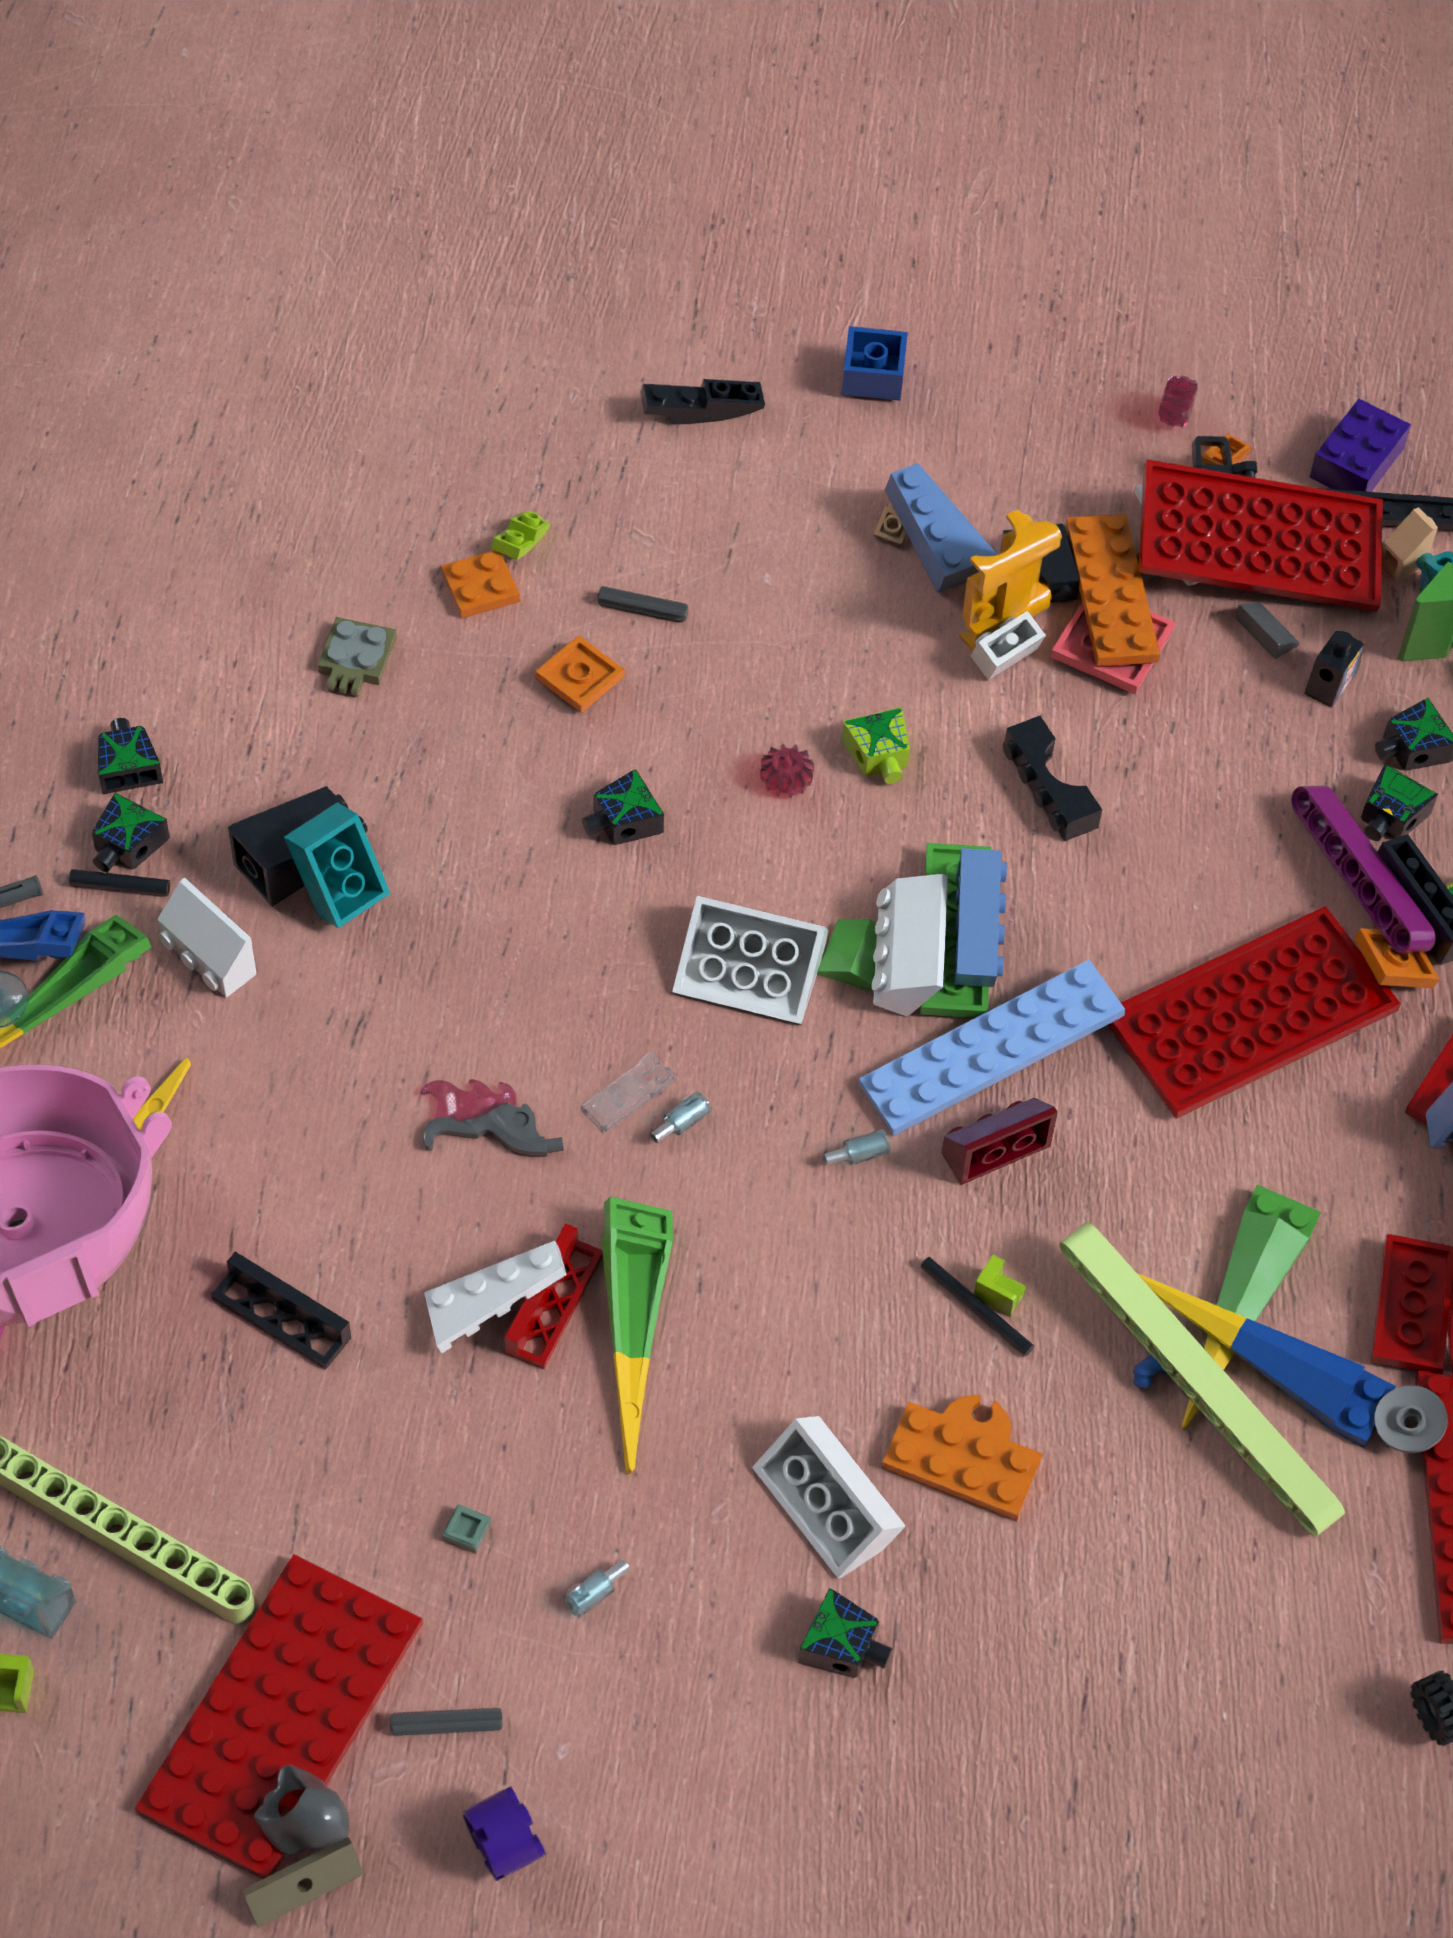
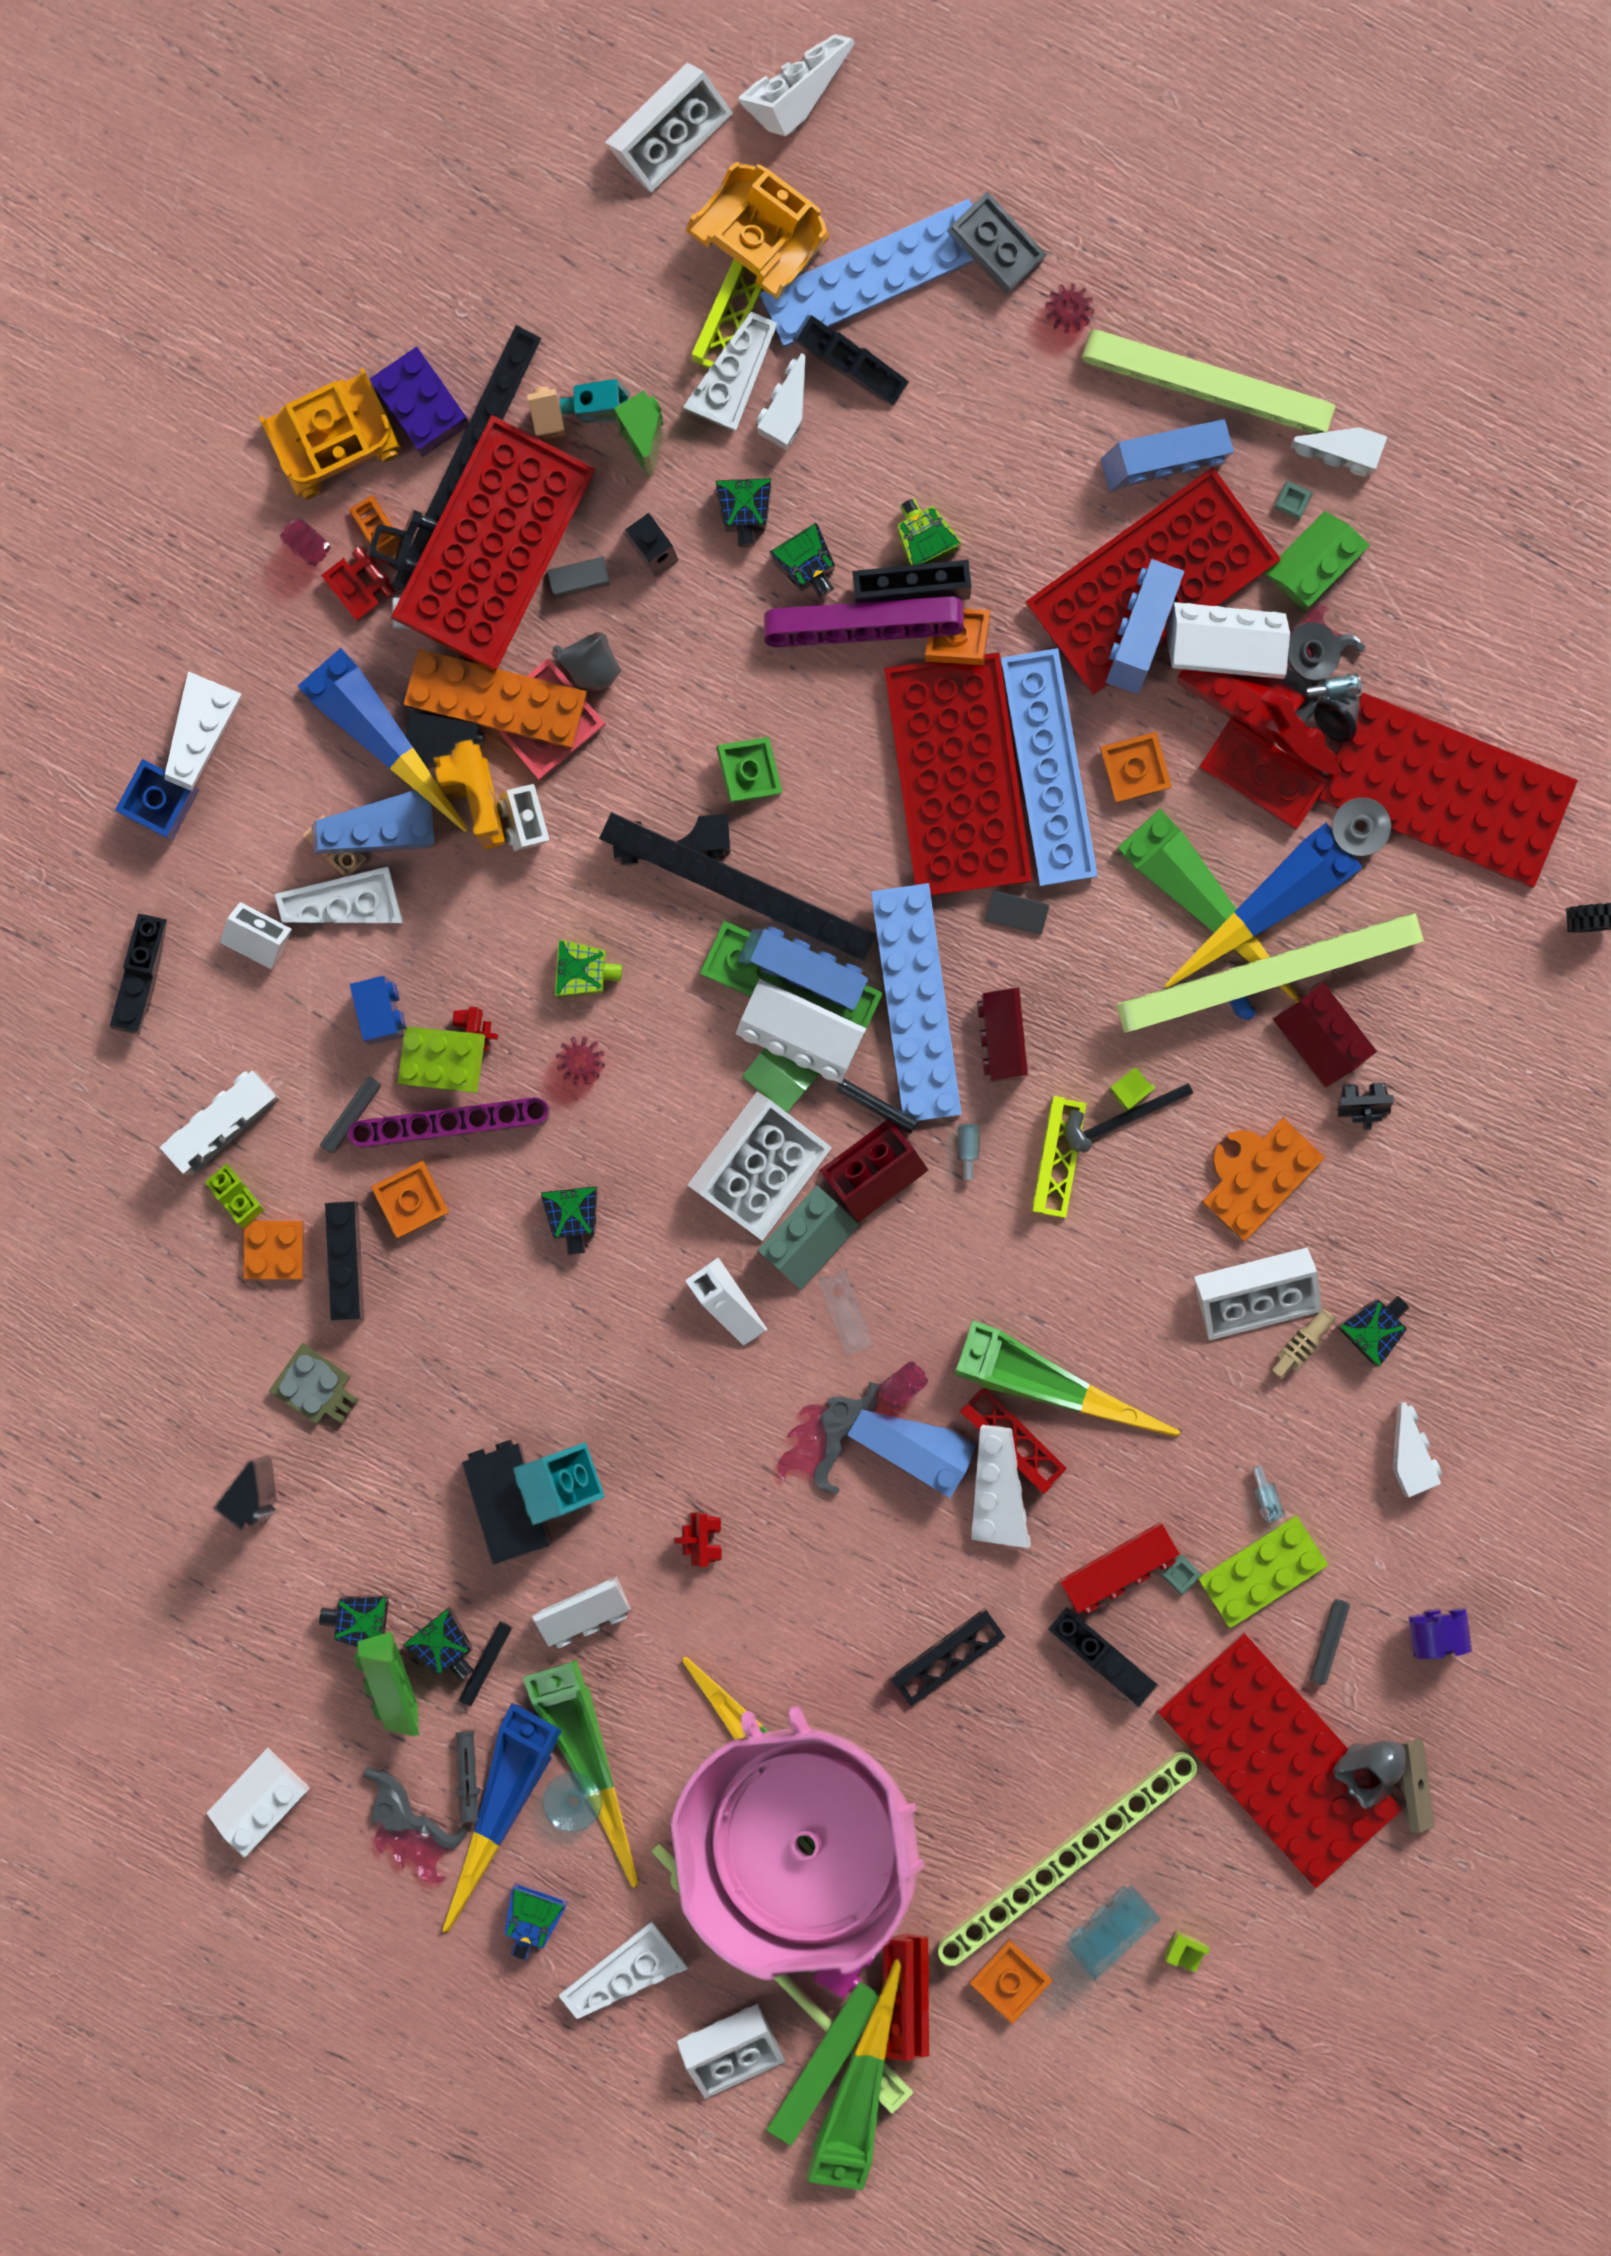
camera: 65 degrees left, 30 degrees up
(70, 790) = (388, 1684): none -> bright green slope
(226, 604) = (250, 1495): none -> black slope
(311, 1035) = (695, 1539): none -> red hips
(339, 1469) = (1103, 1657): none -> black slope
(448, 1453) = (1119, 1568): none -> red brick
(493, 636) = (344, 1260): none -> black brick
(503, 1617) = (1262, 1571): none -> lime plate
(505, 1202) = (923, 1450): none -> medium blue wedge
(572, 1161) = (903, 1384): none -> clear pink gear
(583, 495) = (219, 1123): none -> white wedge
(595, 965) = (726, 1301): none -> white slope
(673, 682) = (434, 1119): none -> magenta beam
(683, 1116) = (887, 1278): clear light blue piece -> none
(695, 1025) = (808, 1237): none -> sand green slope
(705, 1732) = (1411, 1460): none -> white slope
(732, 649) = (441, 1059): none -> lime plate
(756, 582) = (377, 1010): none -> blue brick
(771, 673) = (472, 1021): none -> red hips
(783, 472) = (255, 935): none -> white brick
(788, 1565) = (1302, 1344): none -> tan hinge
(792, 1066) = (874, 1170): none -> dark red slope
(853, 536) = (350, 899): none -> white wing
(865, 1048) = (877, 1105): none -> black piece
(889, 1226) = (1047, 1159): none -> neon yellow fence
(925, 1241) = (1074, 1134): none -> dark grey arm
(962, 373) = (199, 726): none -> white wing
(1033, 845) = (737, 885): none -> black plate
(1042, 486) = (351, 702): none -> blue plate
(1095, 1536) = (1365, 1108): none -> black hips
(1137, 1114) = (1017, 912): none -> dark grey slope
(1155, 823) = (749, 770): none -> bright green slope
(1158, 446) = (350, 588): none -> red plate
(1158, 1462) = (1324, 1034): none -> dark red slope
(1190, 649) = (589, 662): none -> dark grey piece
(1290, 392) = (330, 433): none -> light orange piece
(1304, 1093) = (1048, 767): none -> light blue plate
(1351, 1175) = (1135, 767): none -> orange plate

